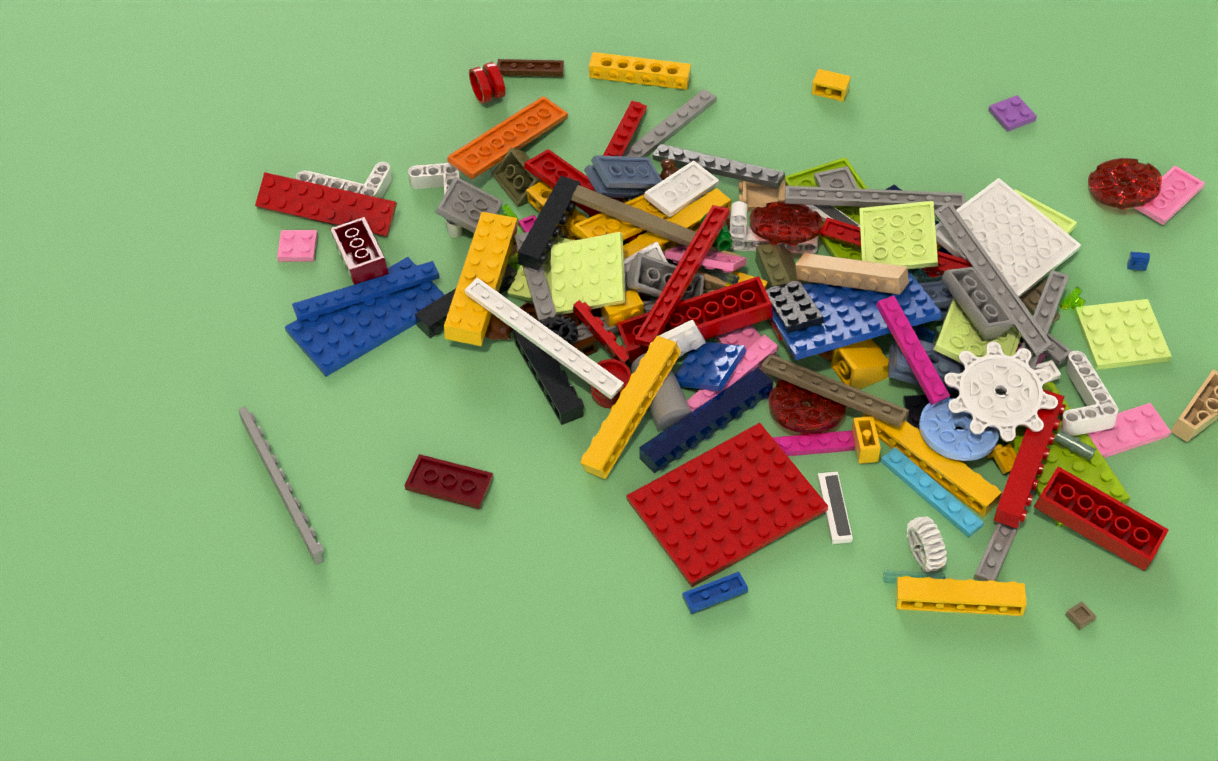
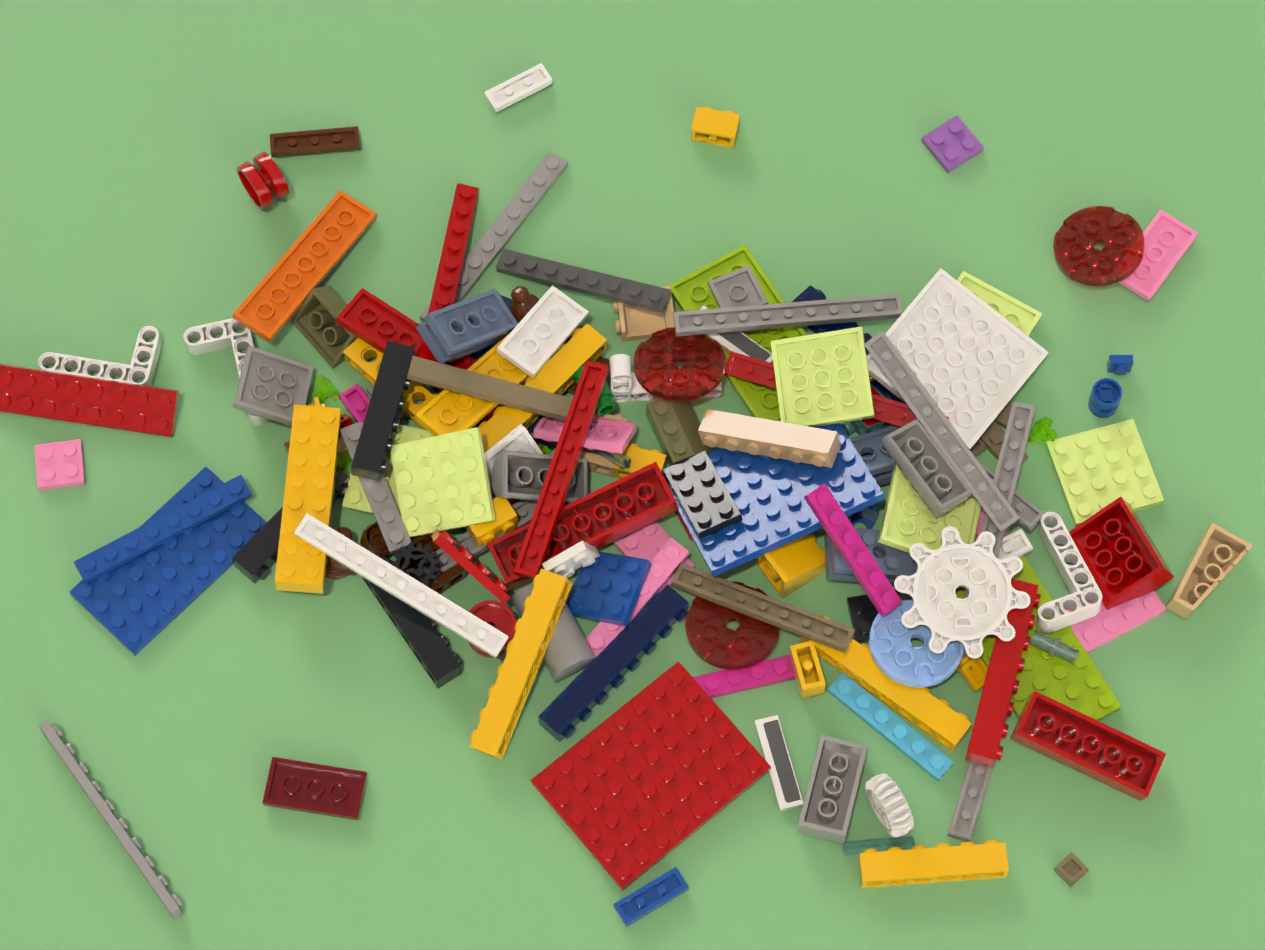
camera: 10 degrees left, 15 degrees up
(359, 251) = (144, 472): dark red brick -> none
(639, 70) = (471, 125): yellow brick -> none
(686, 49) = (518, 87): none -> white plate
(878, 528) = (832, 789): none -> light grey brick
(1125, 281) = (1105, 398): none -> blue wheel
(1136, 386) = (1120, 554): none -> red slope

